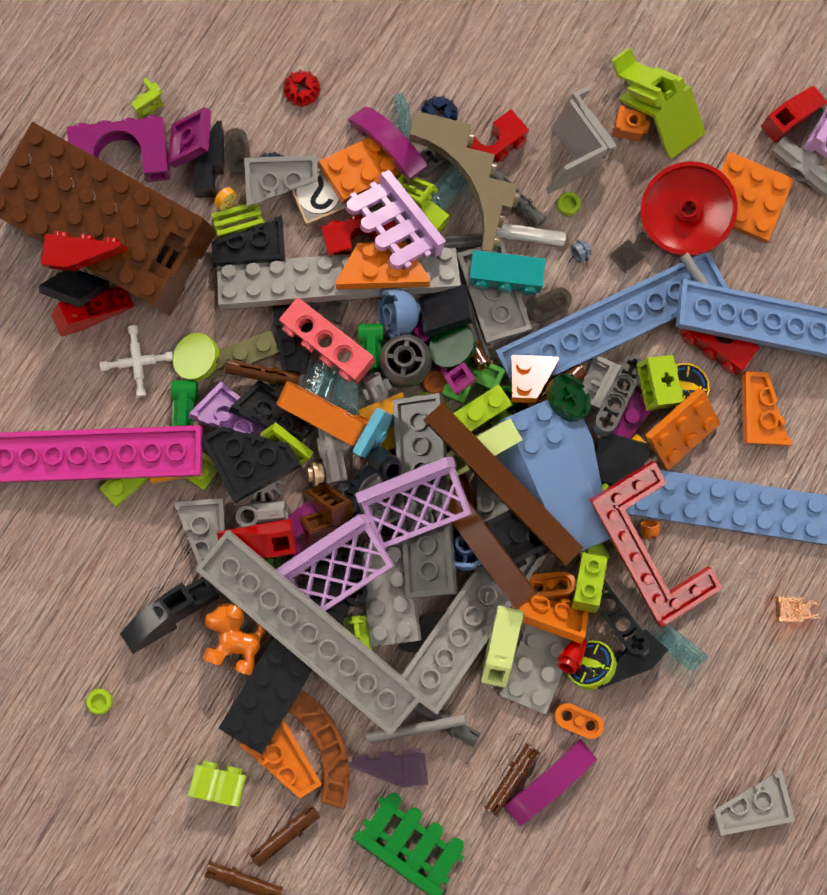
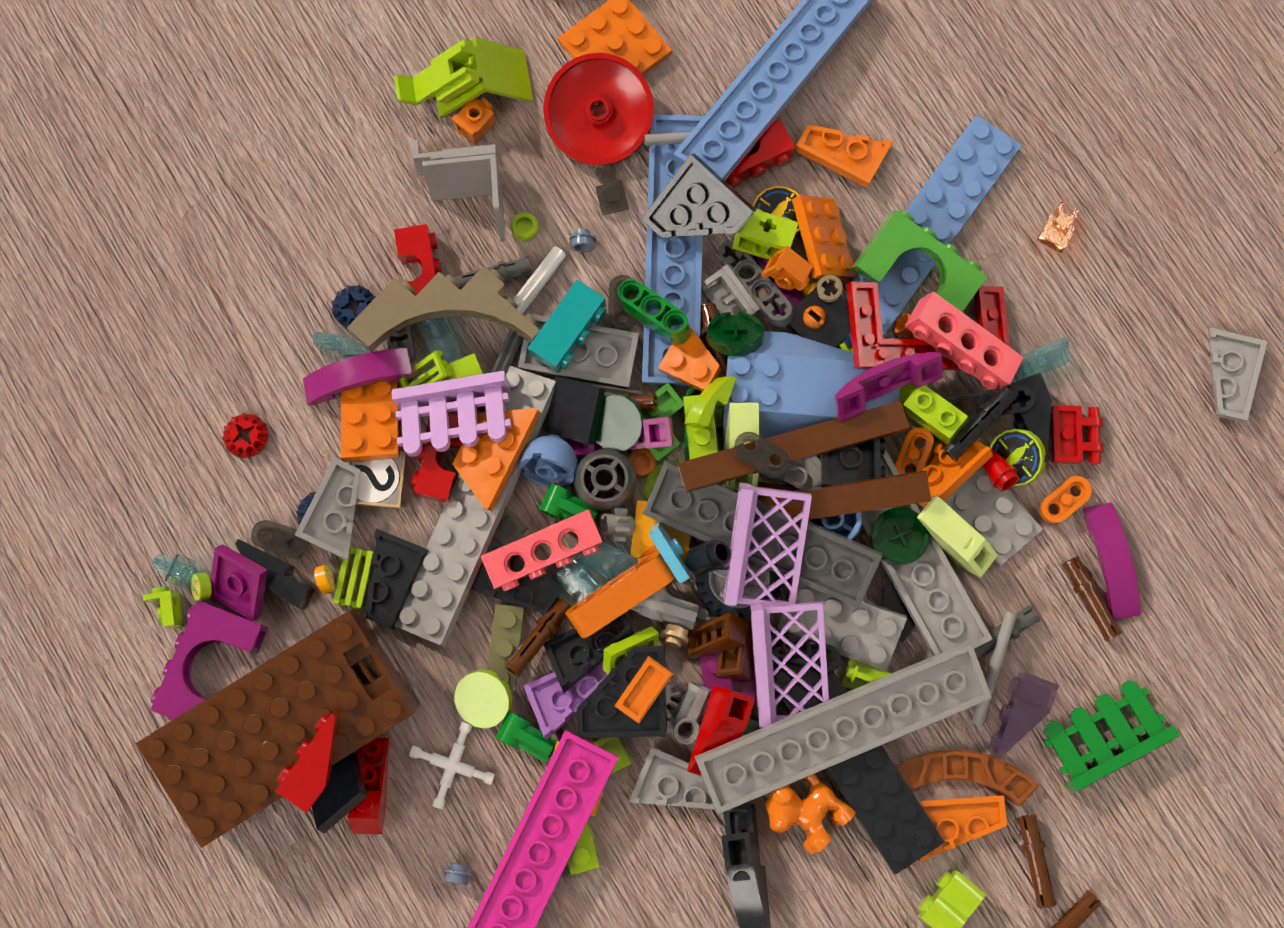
camera: 50 degrees left, 0 degrees up
(59, 406) = (457, 874): none -> sand blue plate
(174, 115) = (201, 586): none -> lime tile
(176, 89) = (177, 570): none -> clear light blue hinge
(259, 466) = (644, 689): none -> orange tile
(478, 602) = (899, 536): none -> dark green tile
(481, 460) = (760, 456): none -> clear smoke plate
(511, 405) = (715, 394): none -> lime slope
(551, 339) = (649, 300): none -> green beam
(594, 527) = (886, 377): none -> magenta slope
(601, 620) = (981, 421): none -> black pin
(620, 455) = (810, 322): none -> orange hinge
(631, 697) = (1067, 435): none -> red plate
(640, 412) = (788, 269): none -> orange brick
(649, 456) = (838, 286): none -> dark tan bush
(654, 317) = (698, 204): none -> plate
(664, 587) = (978, 342): none -> coral brick
(709, 548) = (897, 234): none -> bright green arch

